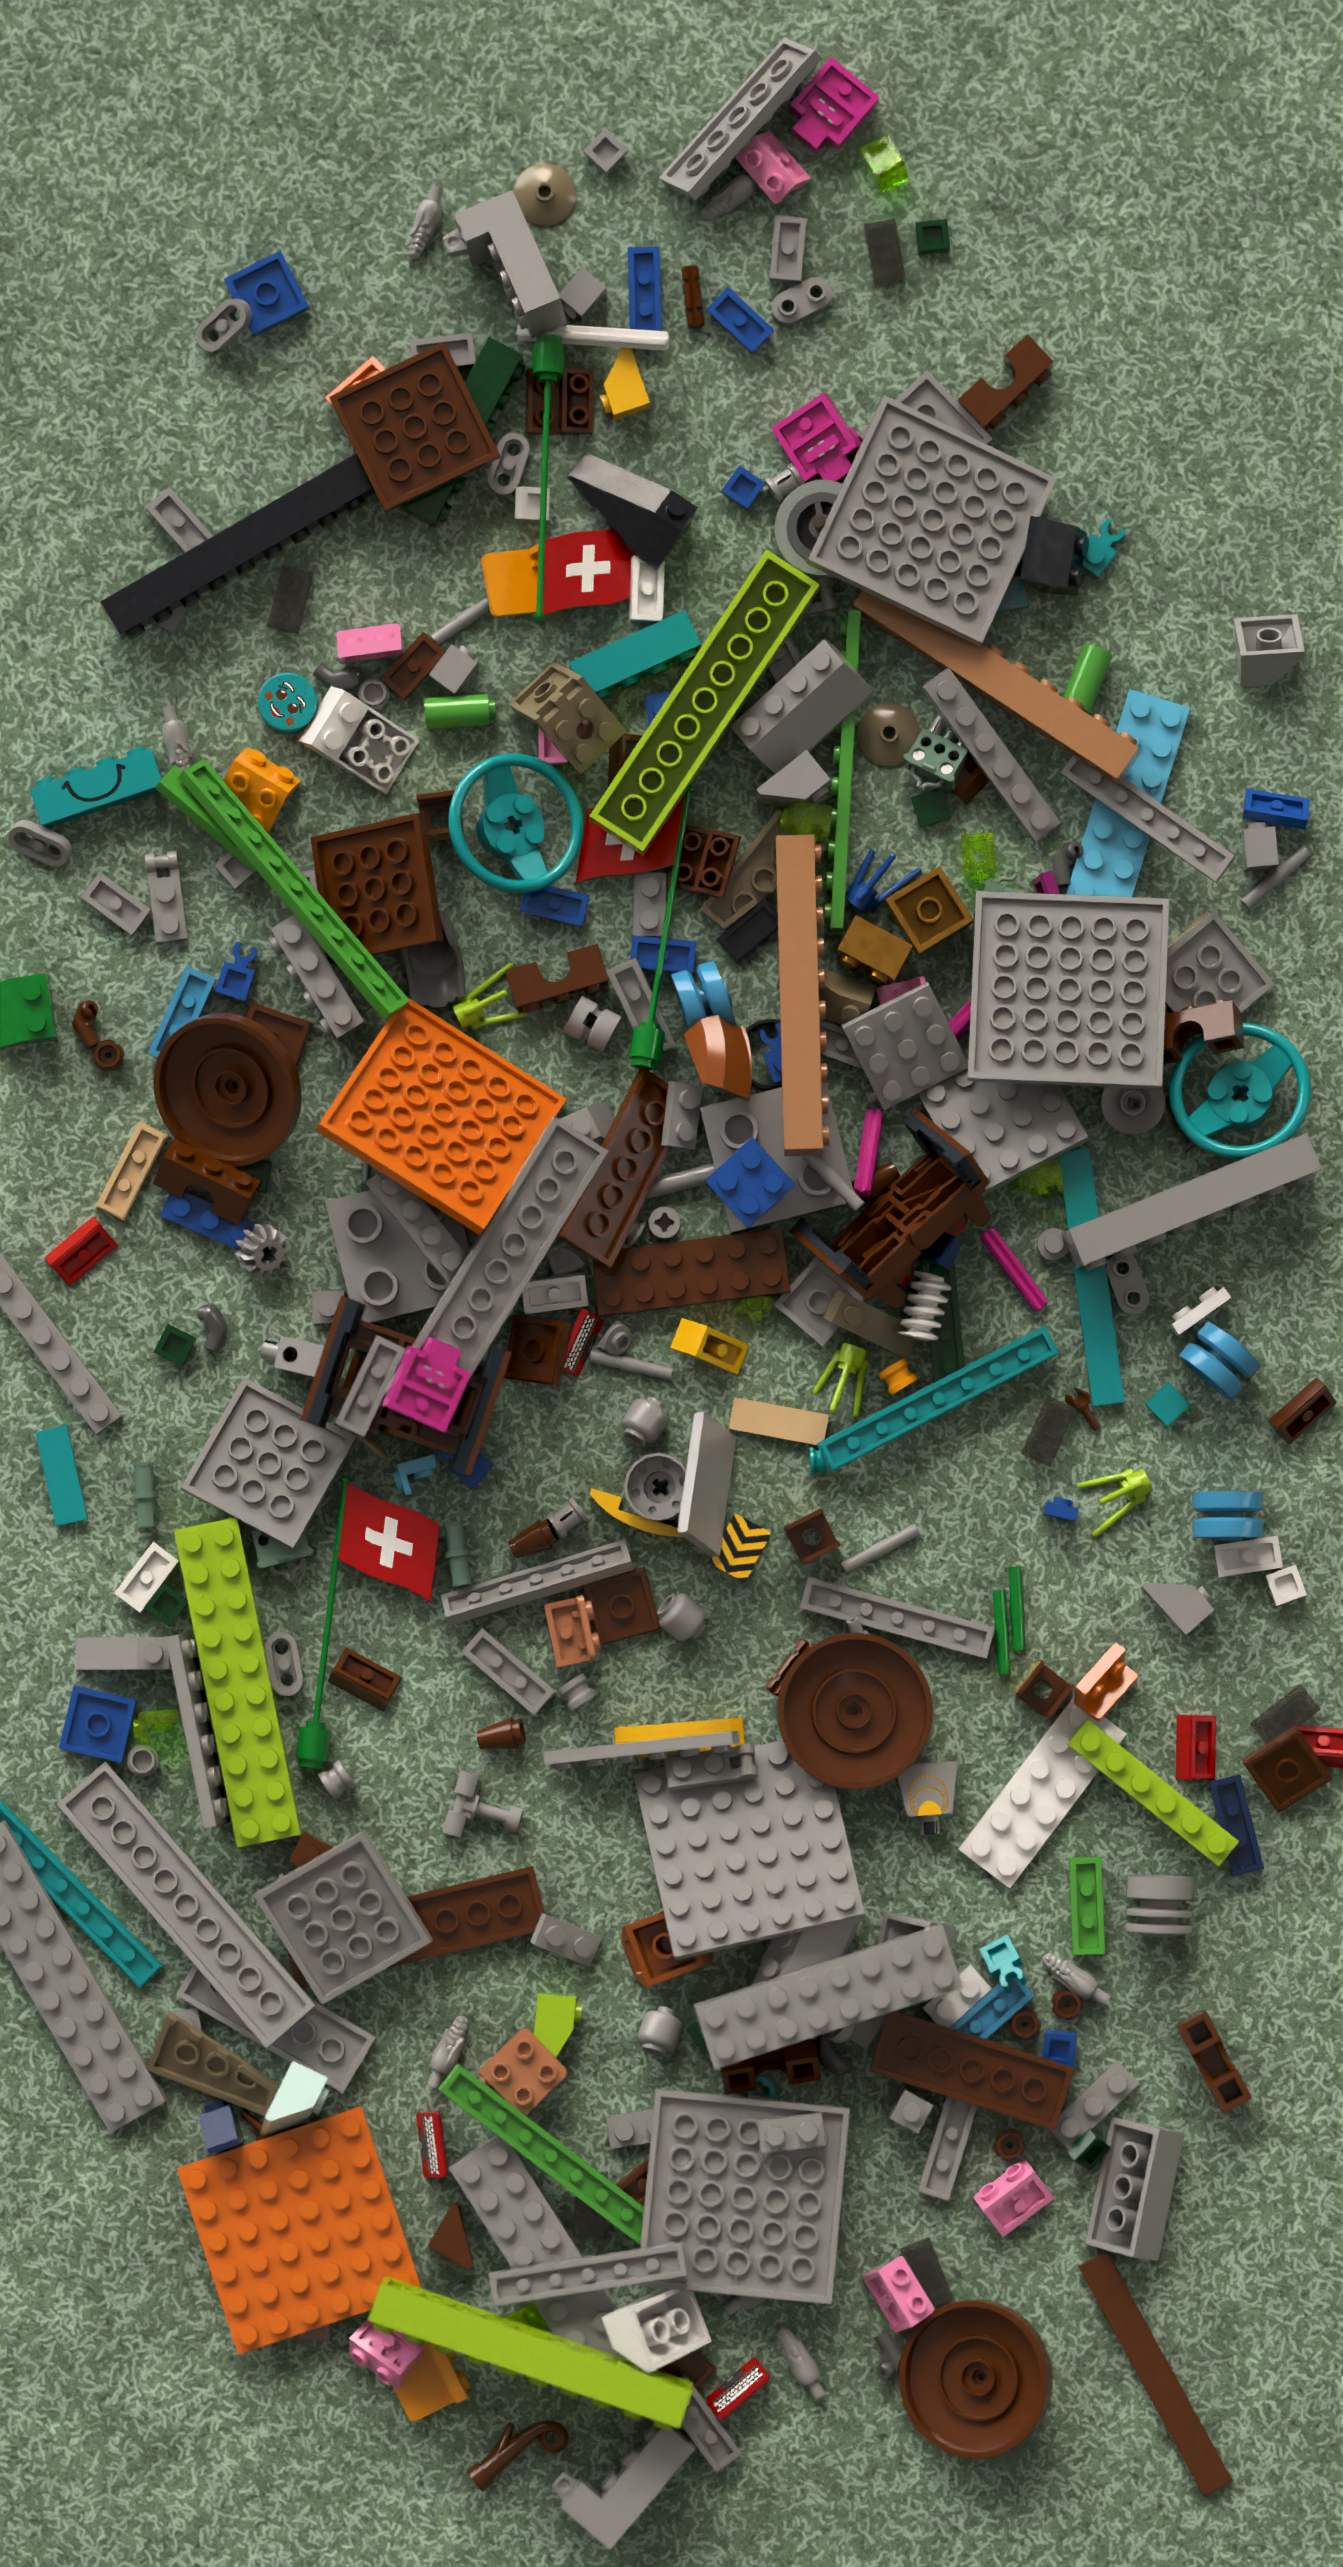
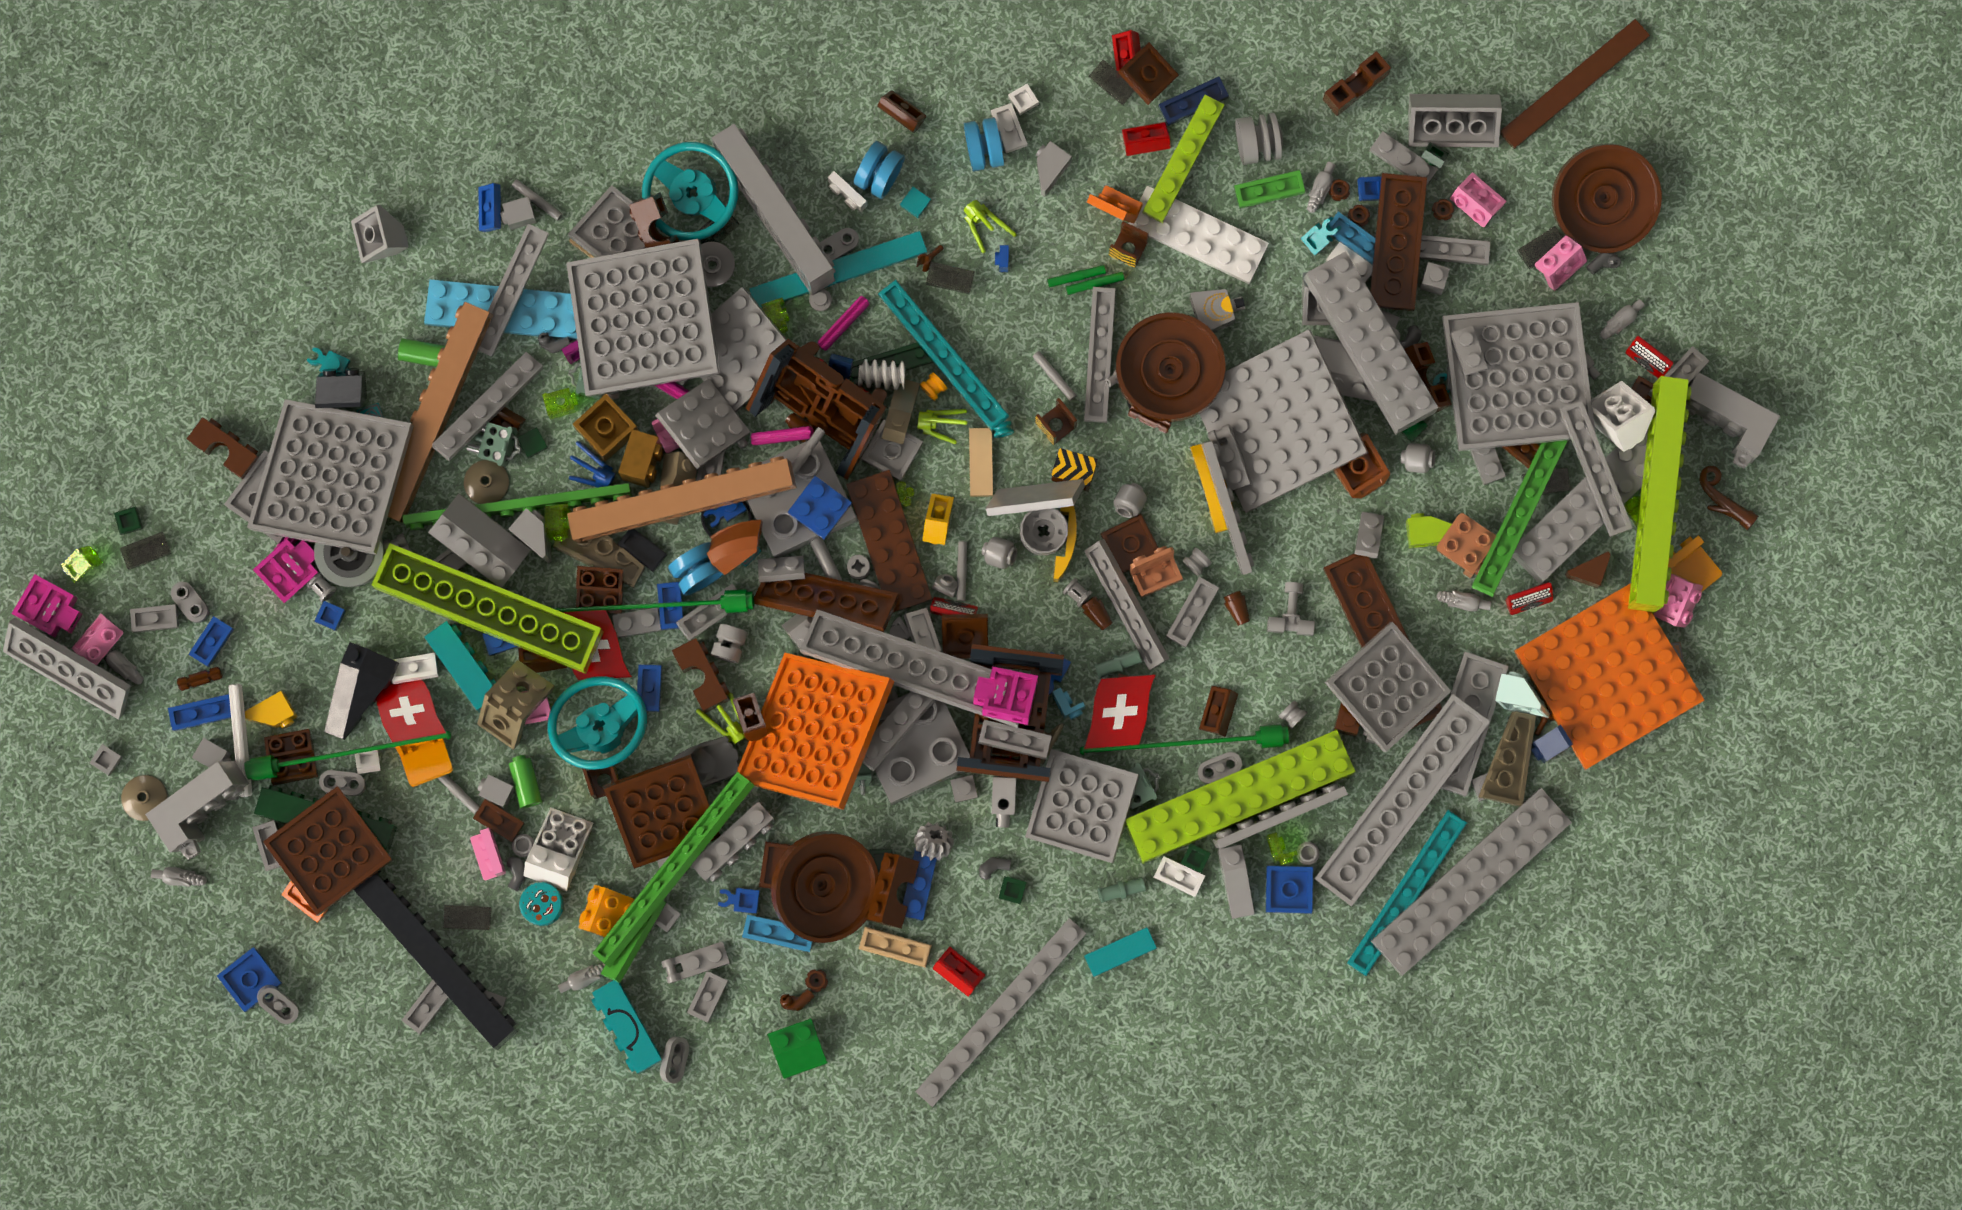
camera: 100 degrees left, 5 degrees down
(483, 1033) = (750, 717): none -> reddish brown brick

